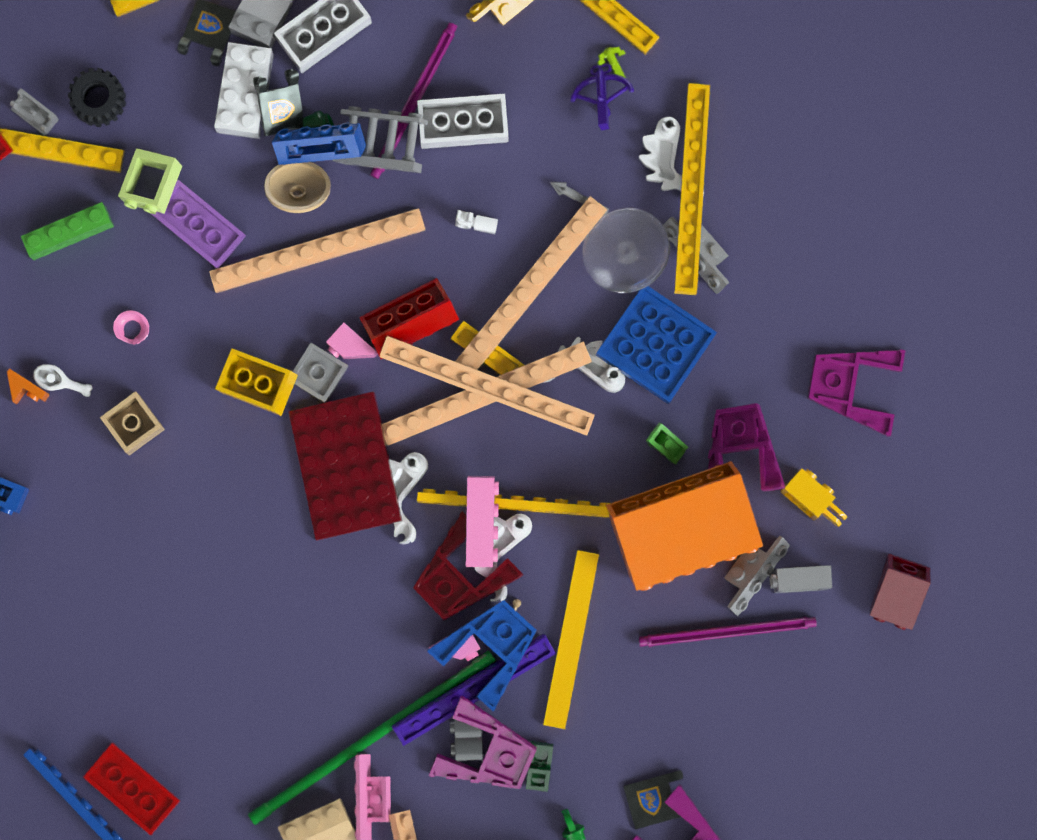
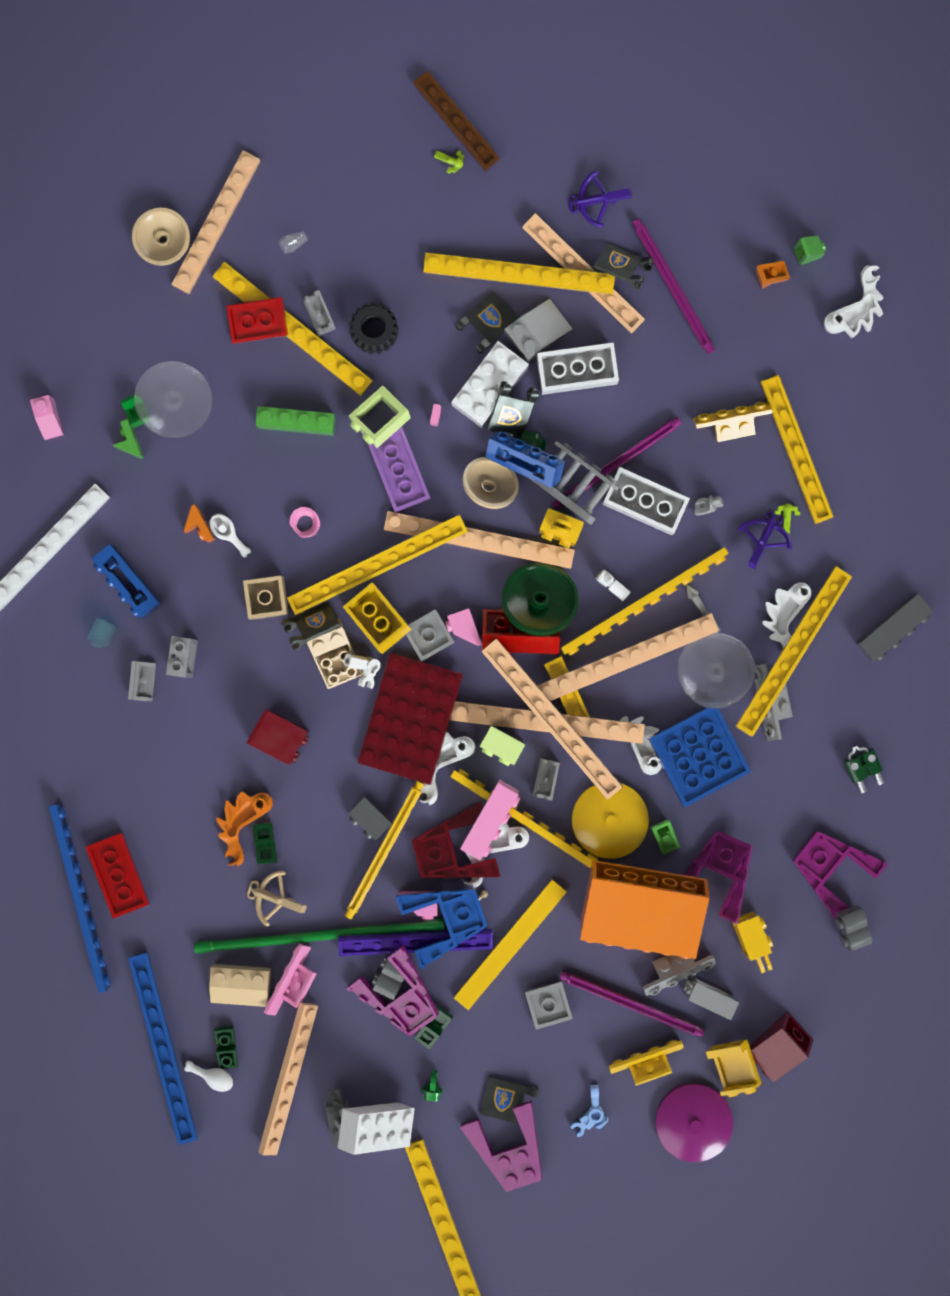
camera: 30 degrees right, 5 degrees up
(51, 577) = (142, 681): none -> light grey hinge
(82, 534) = (184, 659): none -> light grey window
(193, 425) = (311, 624): none -> pearl dark grey flag
(206, 150) = (435, 415): none -> bright pink tile
(221, 556) = (278, 737): none -> dark red slope
(227, 329) = (377, 564): none -> yellow plate
(229, 651) = (238, 816): none -> orange animal
(232, 443) = (329, 656): none -> tan slope
(266, 674) = (265, 843): none -> dark green slope
(274, 435) = (367, 664): none -> white bar
(288, 726) = (261, 893): none -> tan piece
(359, 589) = (369, 818): none -> dark grey brick
(390, 612) = (384, 849): none -> yellow piece
(392, 193) = (561, 528): none -> yellow brick
(410, 274) = (540, 599): none -> dark green dish
(452, 441) = (501, 745): none -> yellowish green brick
(515, 452) = (546, 779): none -> light grey hinge
(522, 214) = (651, 598): none -> yellow plate
(527, 93) = (708, 505): none -> light grey piece
(604, 462) = (612, 825): none -> yellow dish
(643, 678) = (548, 1005): none -> light grey plate
(751, 765) = (593, 1115): none -> light blue piece
(777, 683) = (648, 1065): none -> yellow bracket
(780, 113) = (895, 627): none -> dark grey brick
(826, 265) = (862, 766): none -> dark green piece
(856, 717) = (694, 1122): none -> magenta dish
(866, 636) = (735, 1067): none -> yellow panel
(906, 431) = (853, 928): none -> dark grey brick

